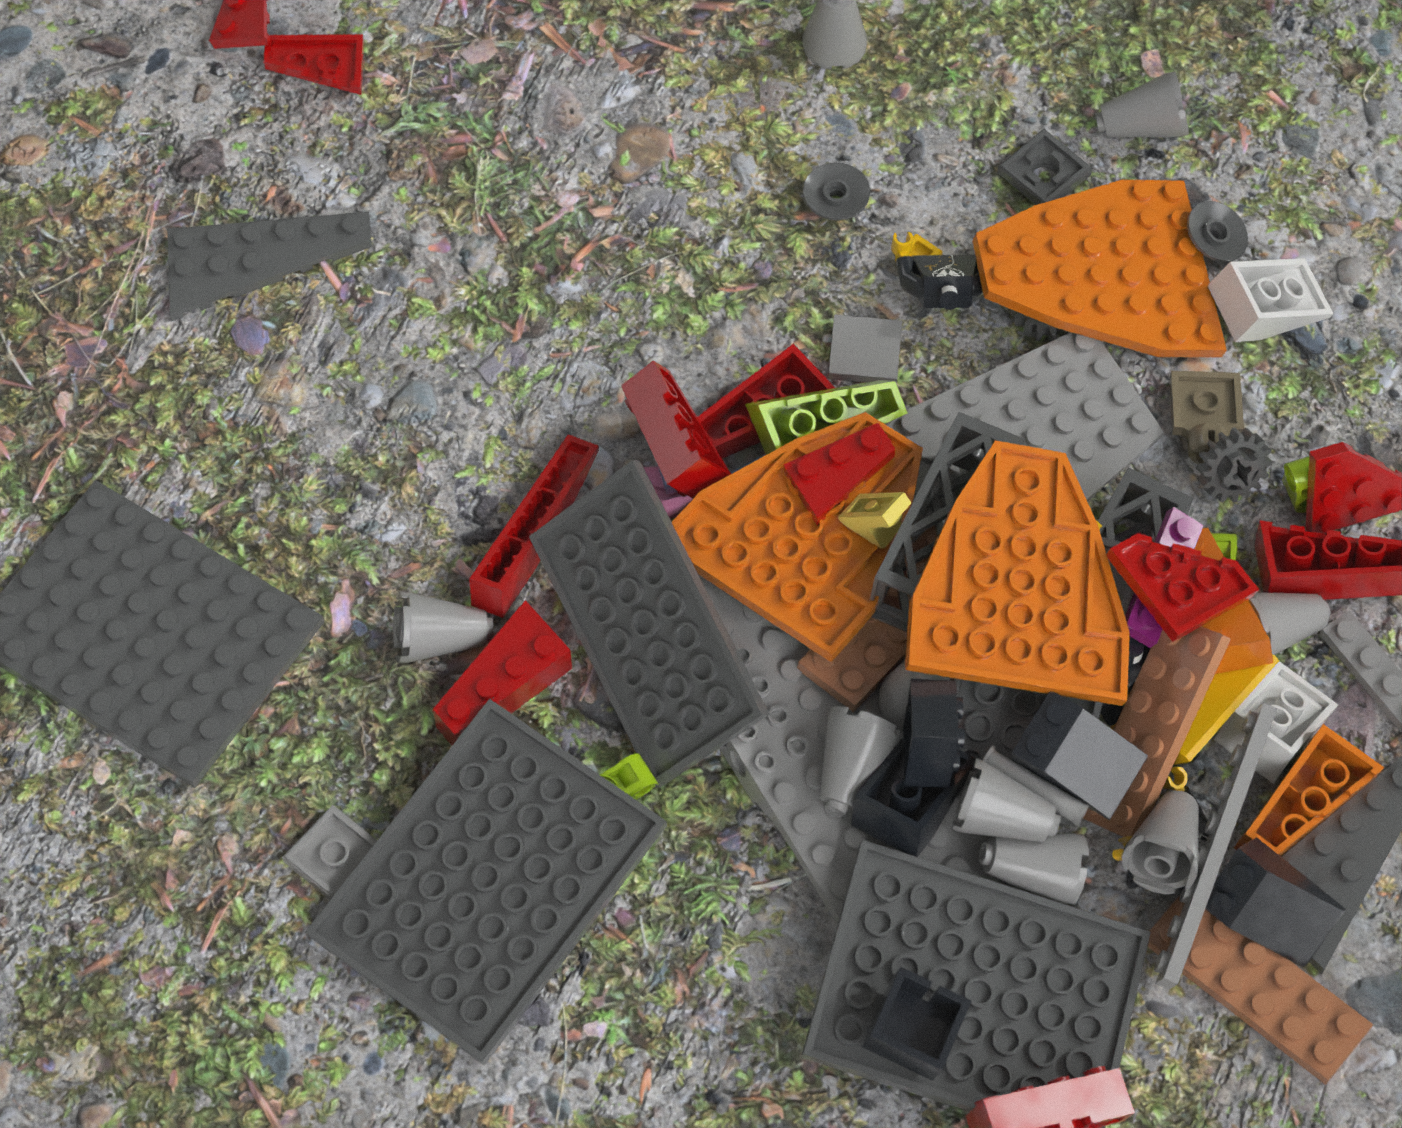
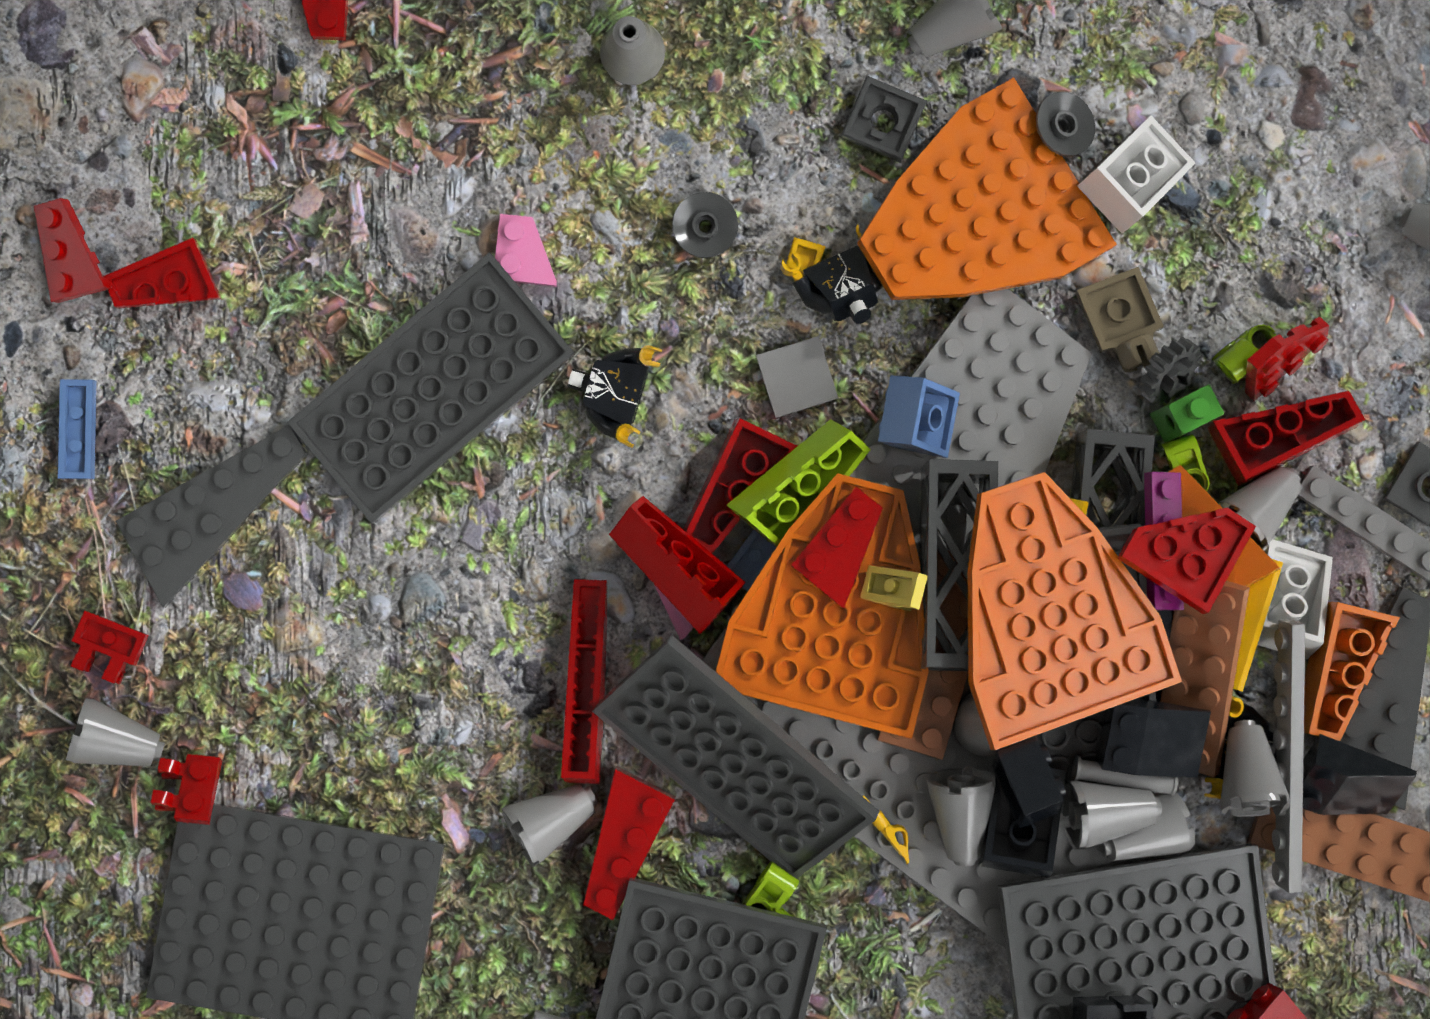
camera: 20 degrees left, 25 degrees up
(60, 396) = (112, 738): none -> light grey cone
(106, 320) = (109, 638): none -> red plate
(115, 473) = (197, 789): none -> red plate
(174, 145) = (77, 429): none -> medium blue plate
(515, 229) = (431, 388): none -> dark grey plate
(653, 158) = (522, 251): none -> bright pink wing
(688, 289) = (615, 390): none -> black torso
(767, 742) = (889, 830): none -> yellow hand
(967, 386) = (918, 416): none -> medium blue slope
(1238, 508) = (1187, 413): none -> bright green torso

